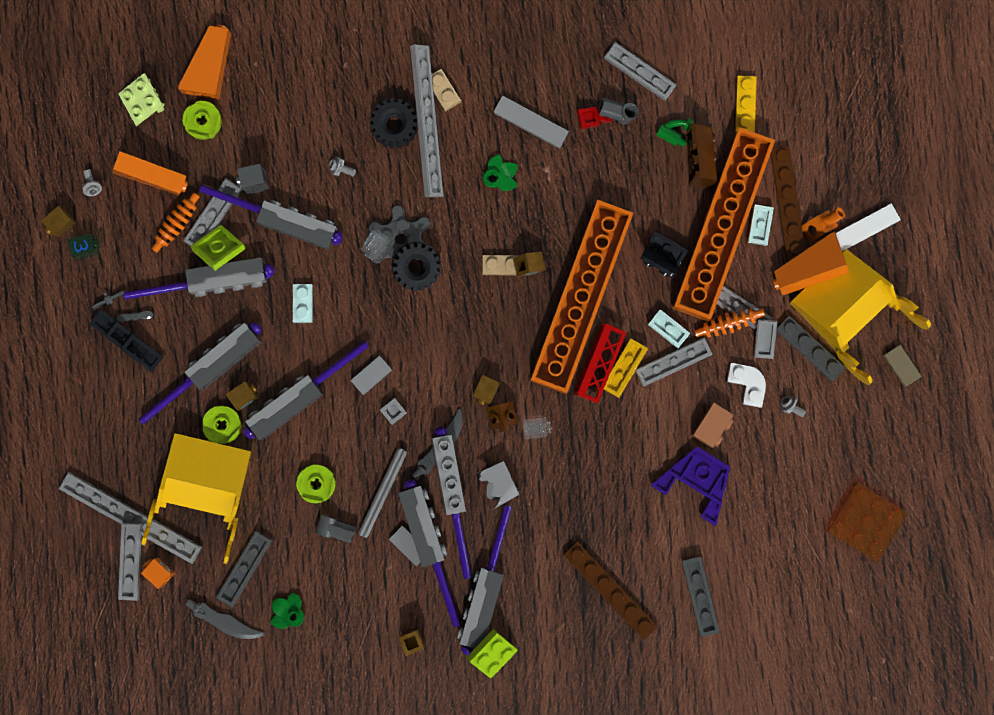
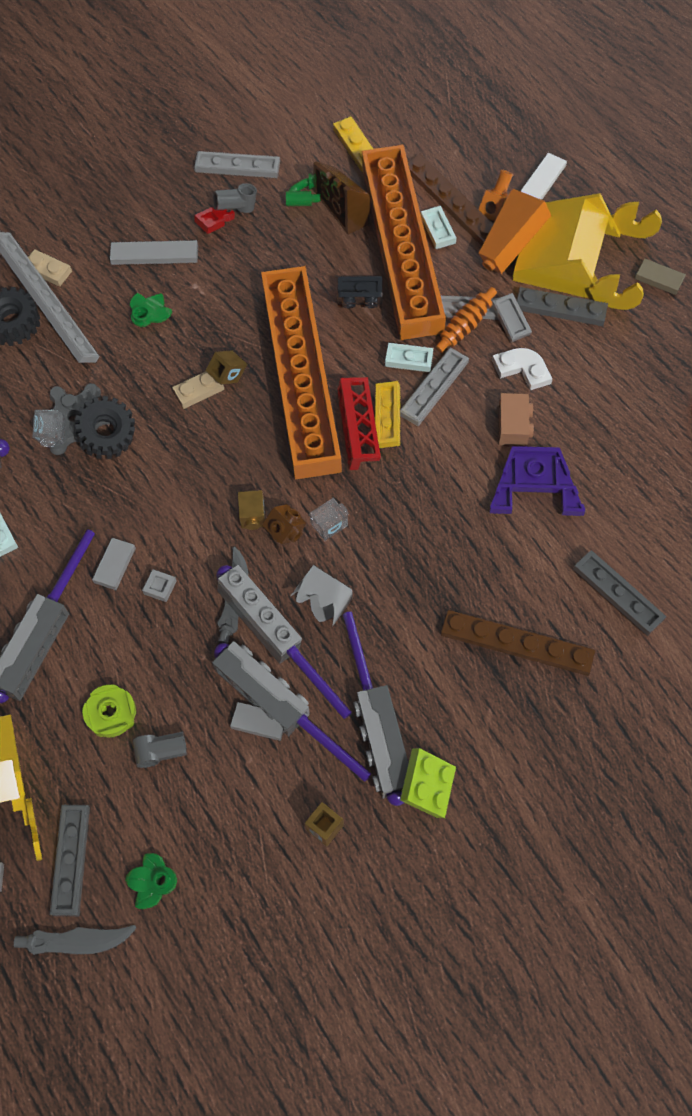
camera: 30 degrees left, 20 degrees down
(382, 492) = (194, 677): light grey axle -> none
(790, 406) = (576, 363): light grey plate -> none

